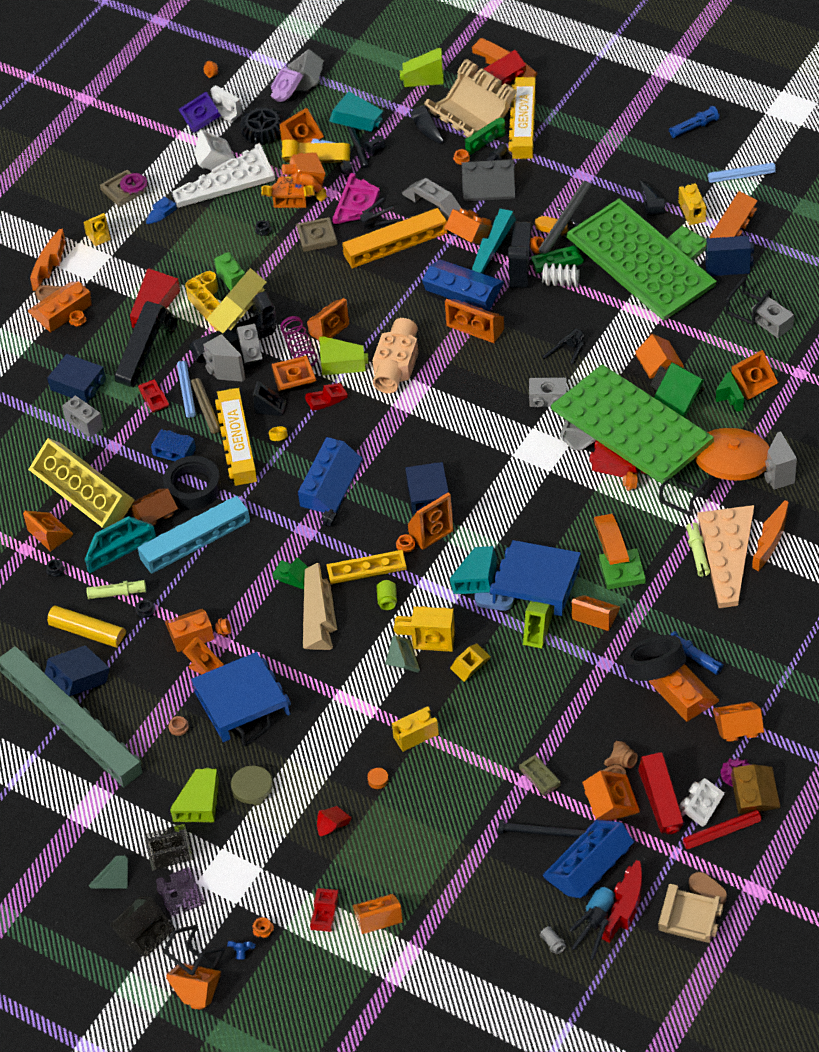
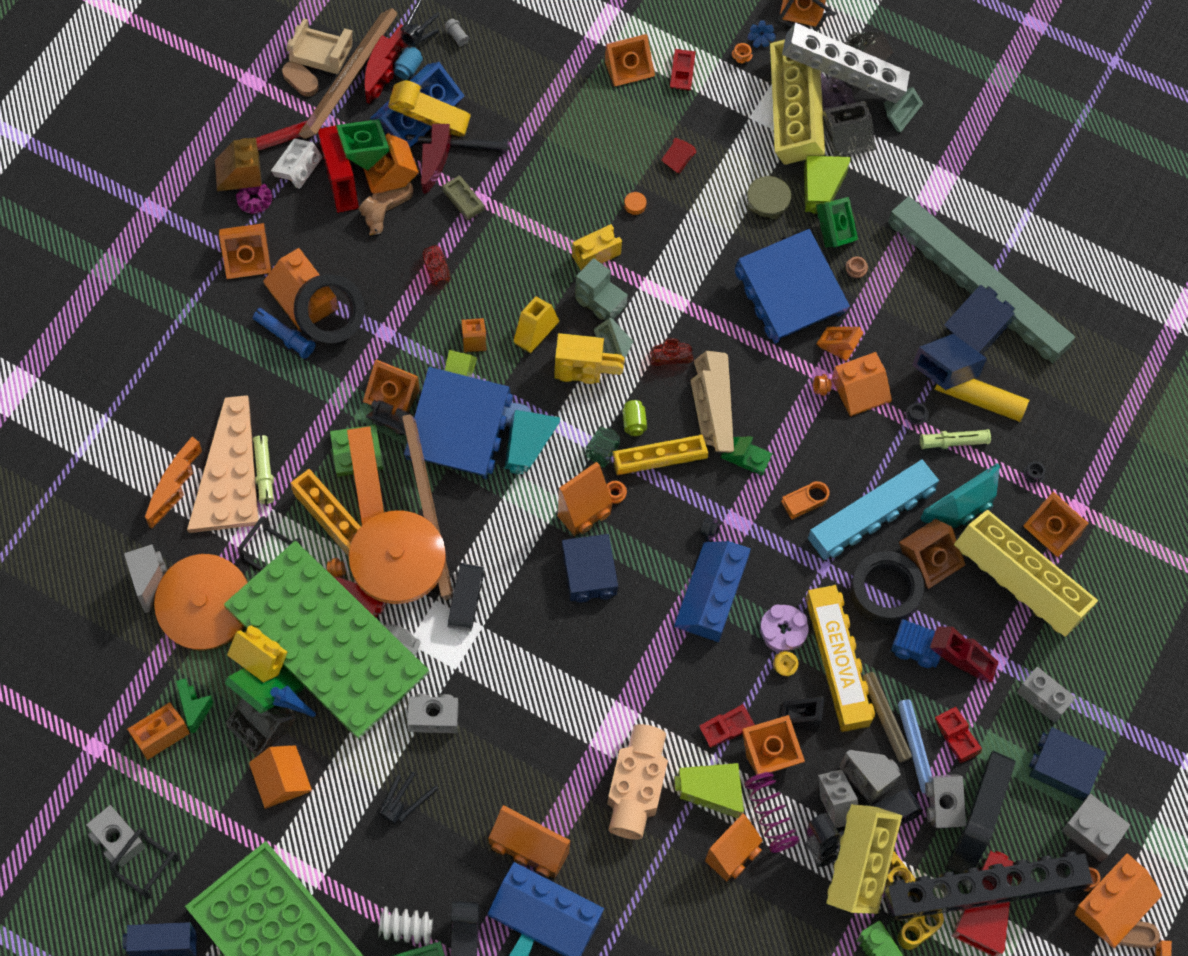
camera: 170 degrees right, 15 degrees up
(62, 340) = (1096, 828): none -> light grey slope
(111, 632) = (949, 361): none -> dark blue brick
(140, 435) = (964, 653): none -> dark red slope
(159, 291) = (902, 908): none -> black brick
(163, 878) = (845, 63): none -> light grey brick
(171, 349) = (954, 813): none -> light grey brick
(191, 751) = (837, 222): none -> green slope
(214, 865) = (796, 108): none -> light yellow brick
(252, 542) = (800, 501): none -> orange piece
(274, 449) = (782, 615): none -> lavender plate
(352, 646) = (671, 353): none -> clear red piece
(414, 572) = (602, 445): none -> clear green brick
(414, 687) = (597, 291): none -> sand green brick
(525, 466) = (466, 597): none -> black beam
(525, 655) = (474, 335): none -> orange slope
(558, 513) = (425, 492): none -> medium nougat tile
(562, 713) = (436, 264): none -> clear red piece
(567, 806) = (435, 155): none -> dark red slope
(580, 469) = (397, 557): none -> orange dish
(591, 832) = (411, 102): none -> yellow beam
(594, 586) = (383, 416): none -> black hinge
(625, 501) = (325, 509): none -> light orange brick
(637, 803) = (363, 142): none -> green slope
(656, 379) = (287, 698): none -> blue piece
(657, 885) = (347, 74): none -> medium nougat tile
(683, 405) = (257, 653): none -> yellow brick

